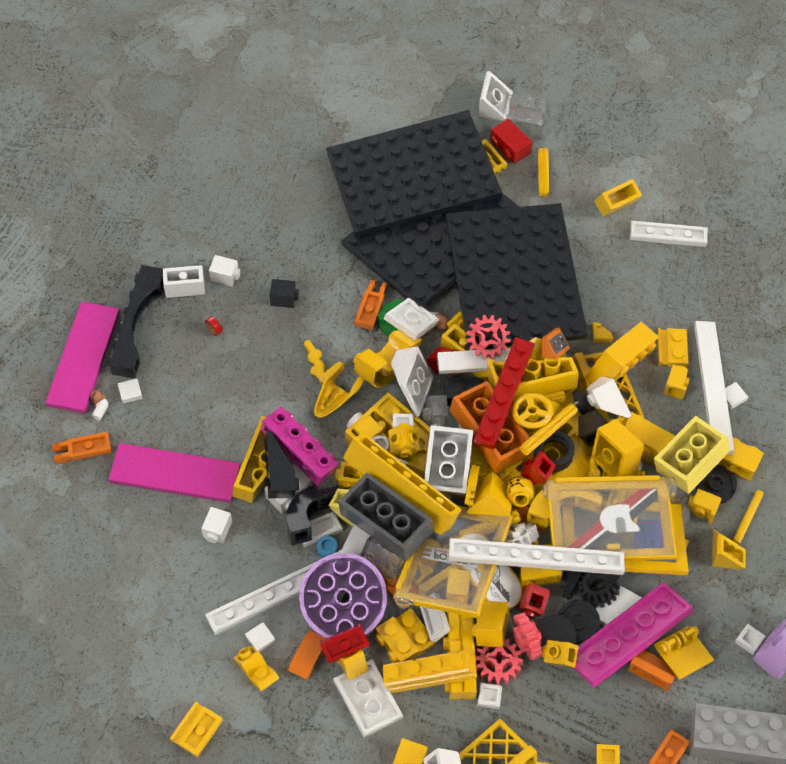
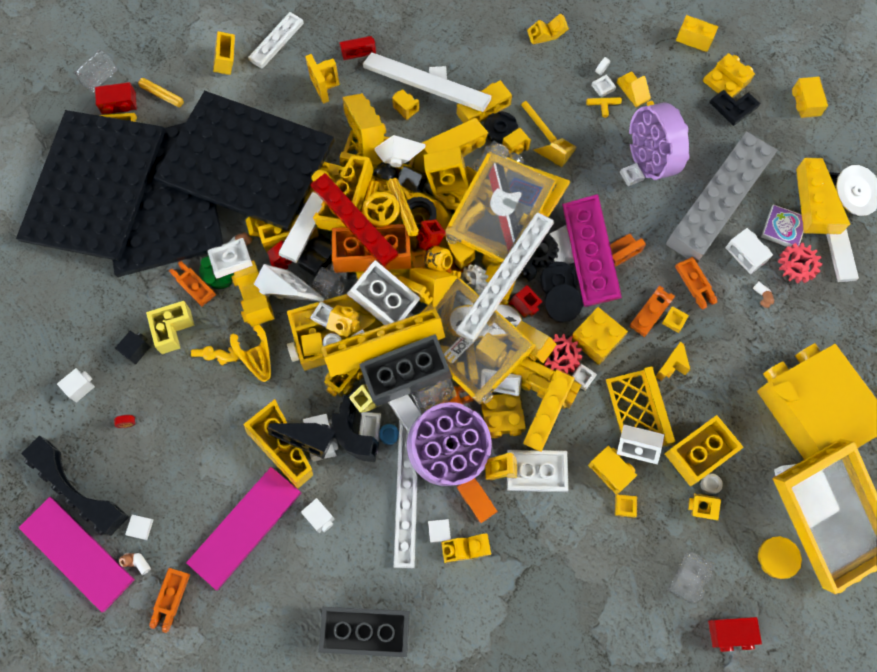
camera: 60 degrees left, 10 degrees up
(134, 617) = (364, 631): none -> dark grey brick
(183, 281) = (63, 424): white brick -> none
(196, 729) = (494, 627): yellow plate -> none
(300, 446) = (293, 407): dark pink brick -> none
(316, 305) = (165, 323): none -> light yellow brick
(344, 643) = (492, 464): red plate -> none
(494, 98) = (67, 88): white slope -> none
(495, 342) = (293, 198): coral gear -> none
(527, 636) = (556, 321): coral gear -> none
(540, 687) = (599, 335): none -> yellow brick
(554, 344) = (332, 162): orange slope -> none
(560, 653) = (586, 300): yellow brick -> none
(600, 333) = (332, 130): yellow tile -> none
(603, 730) = (651, 311): none -> orange plate
(651, 293) = (322, 76): none -> yellow bracket
(672, 347) = (374, 90): yellow plate -> none
(684, 652) = (621, 222): yellow hinge -> none
(692, 454) = (482, 121): light yellow brick -> none
(711, 307) = (357, 47): none -> red panel

